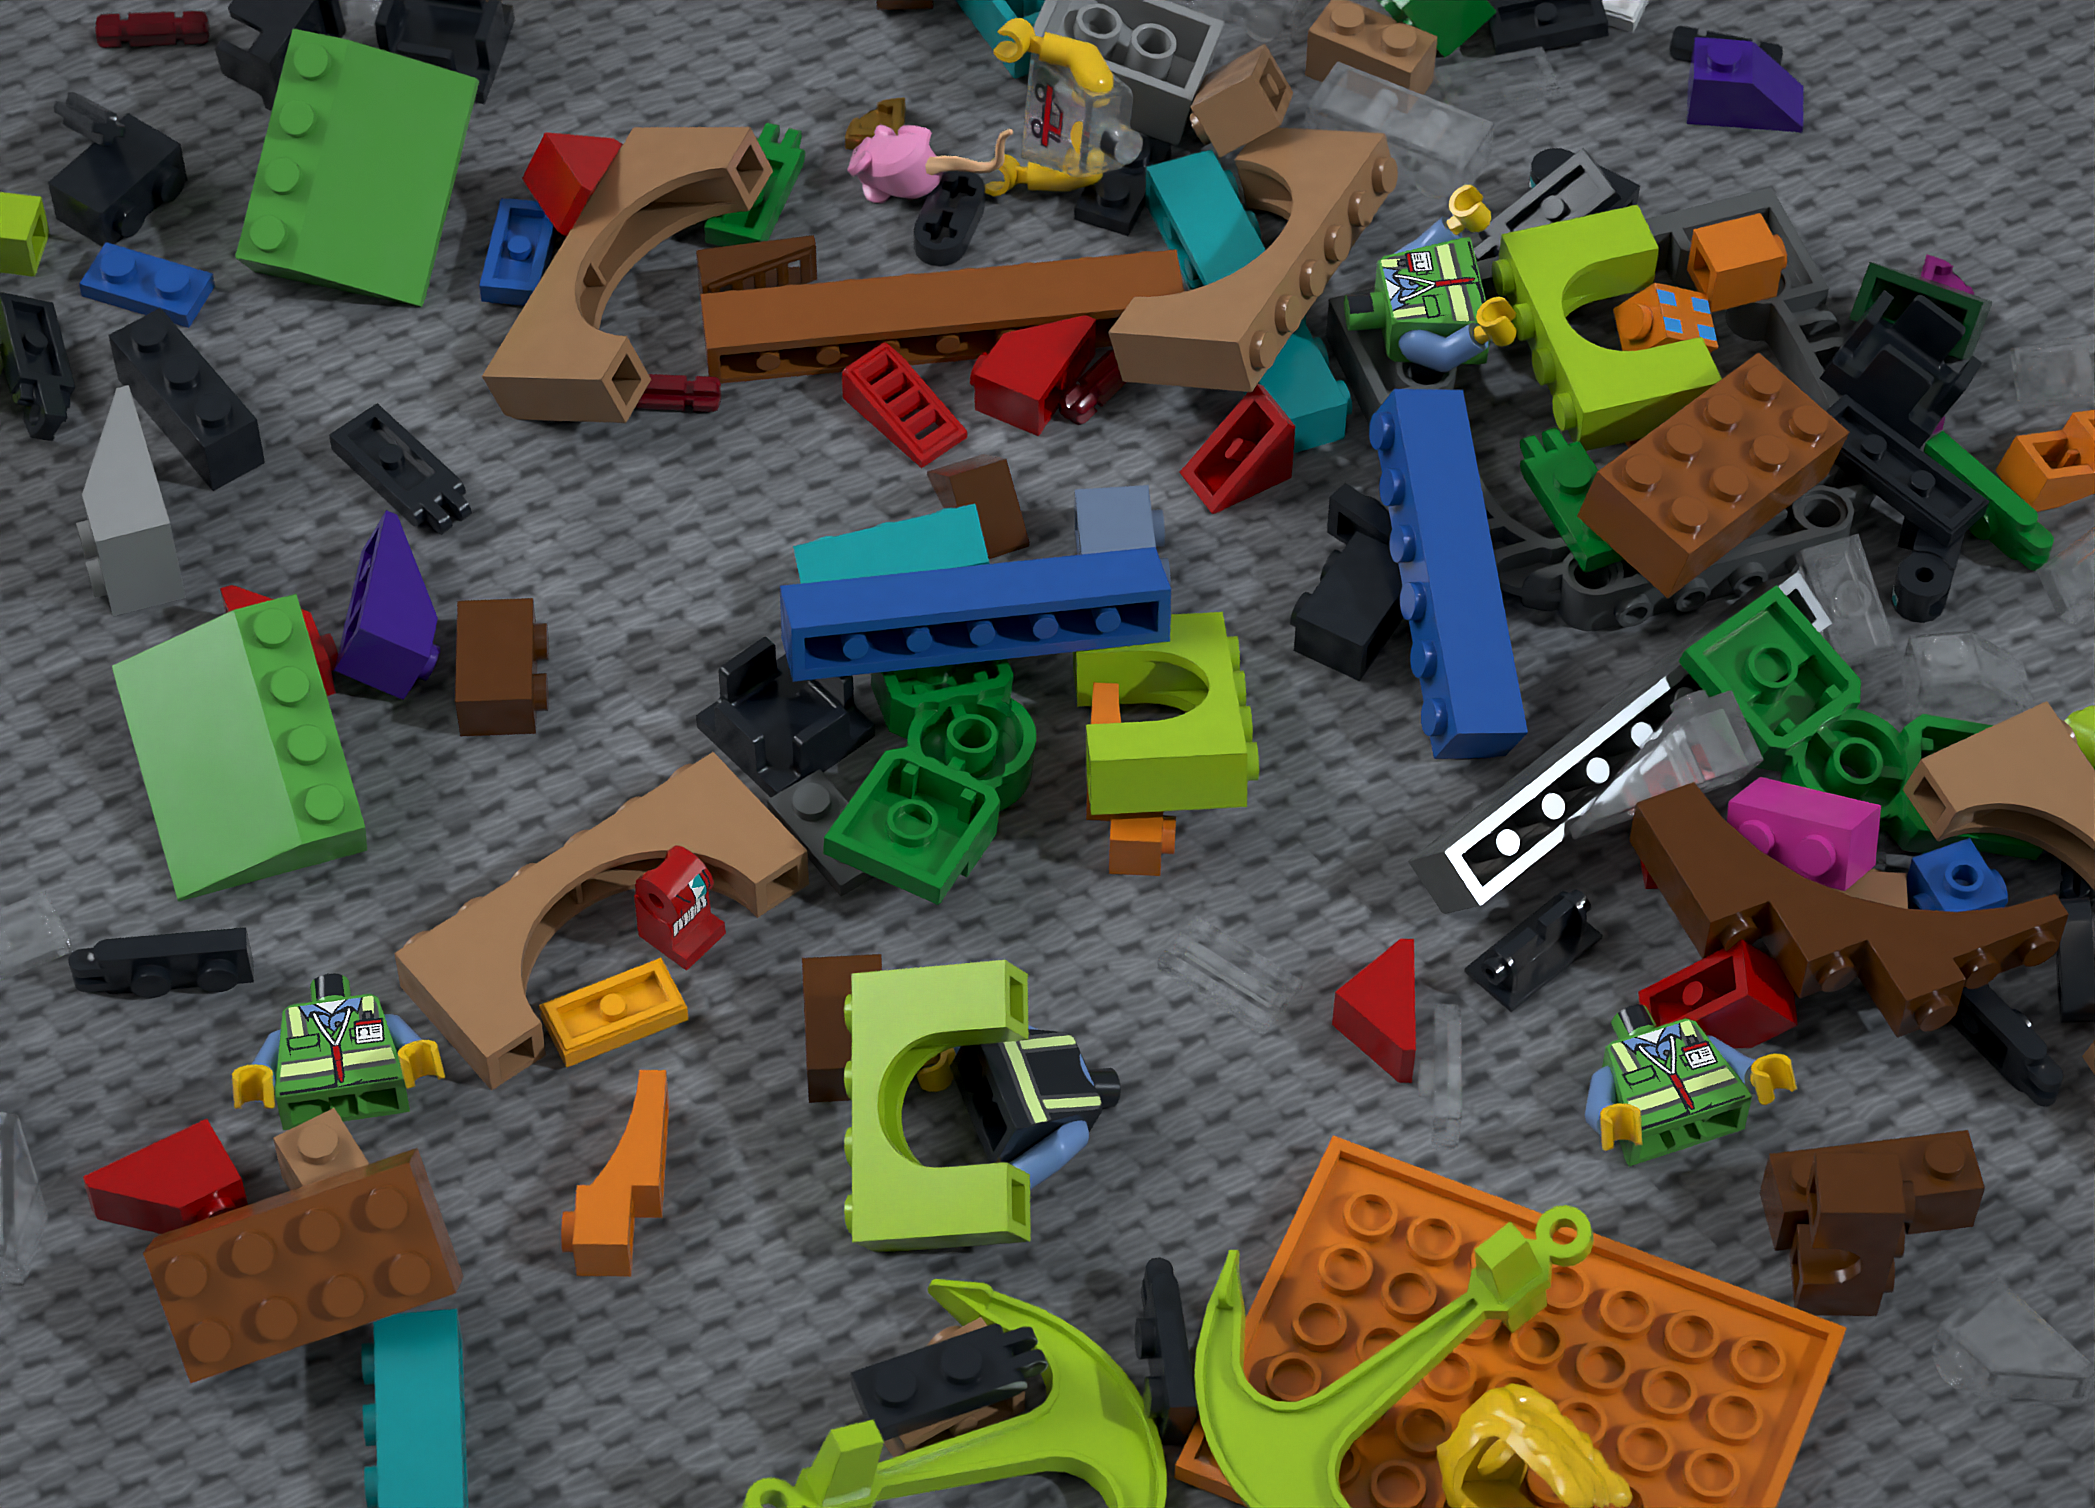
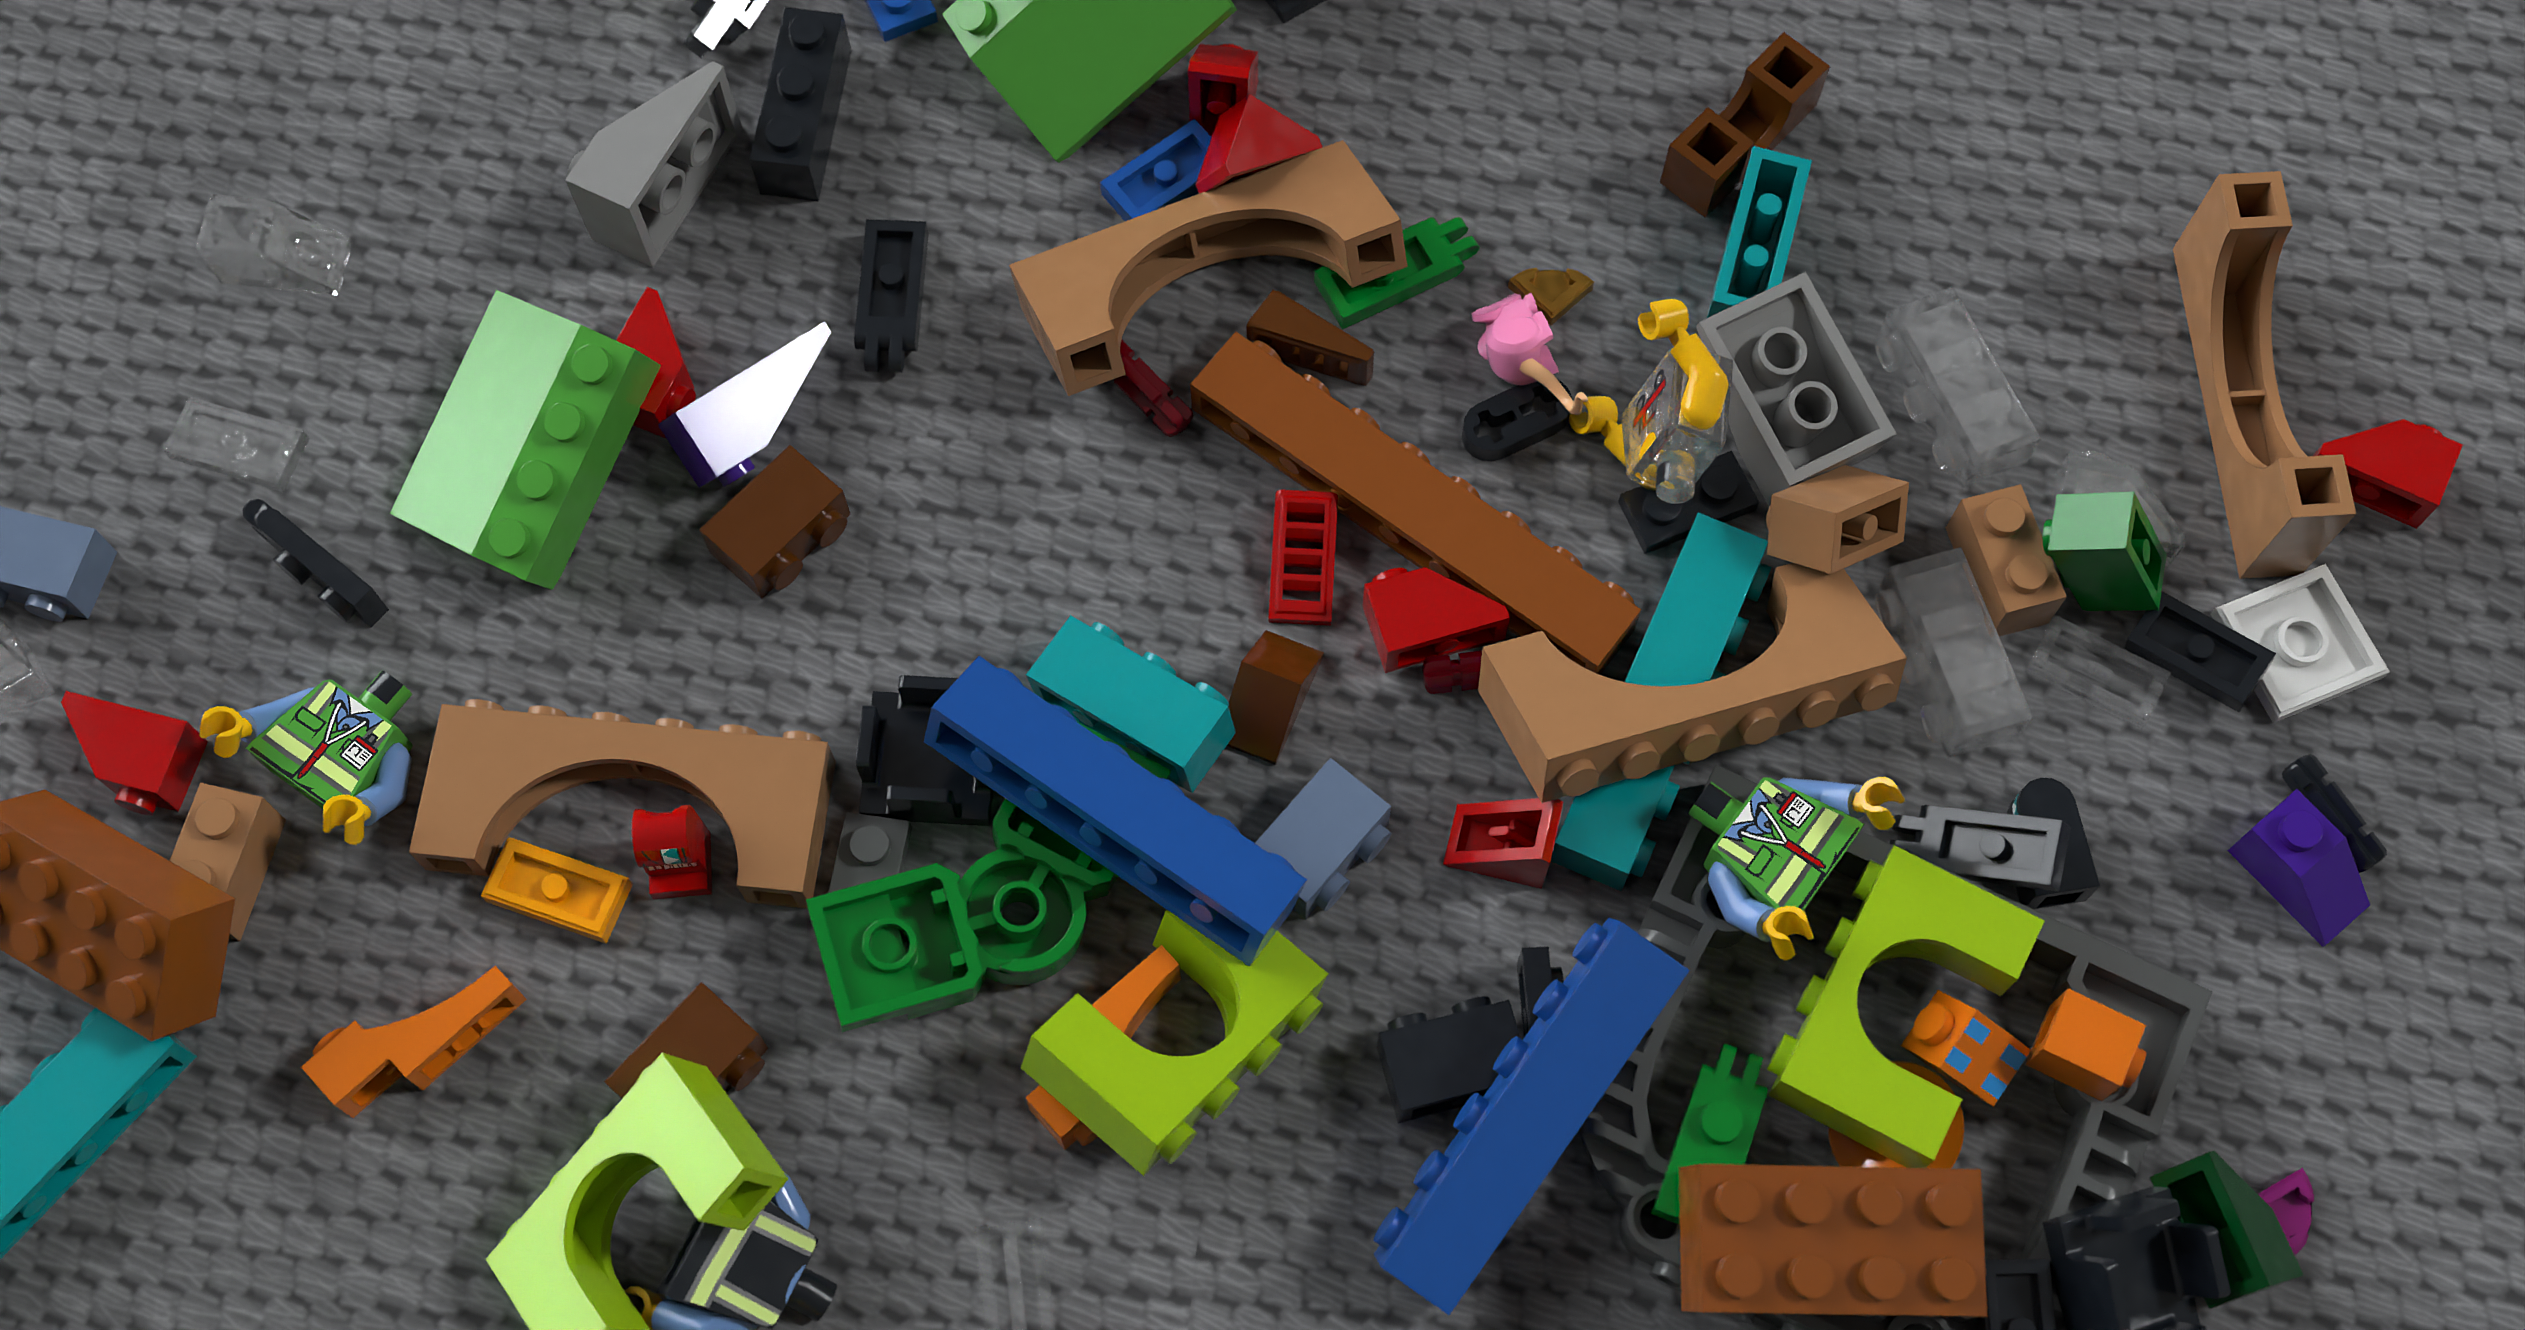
camera: 45 degrees right, 15 degrees up
(498, 157) = (1219, 80): none -> red slope

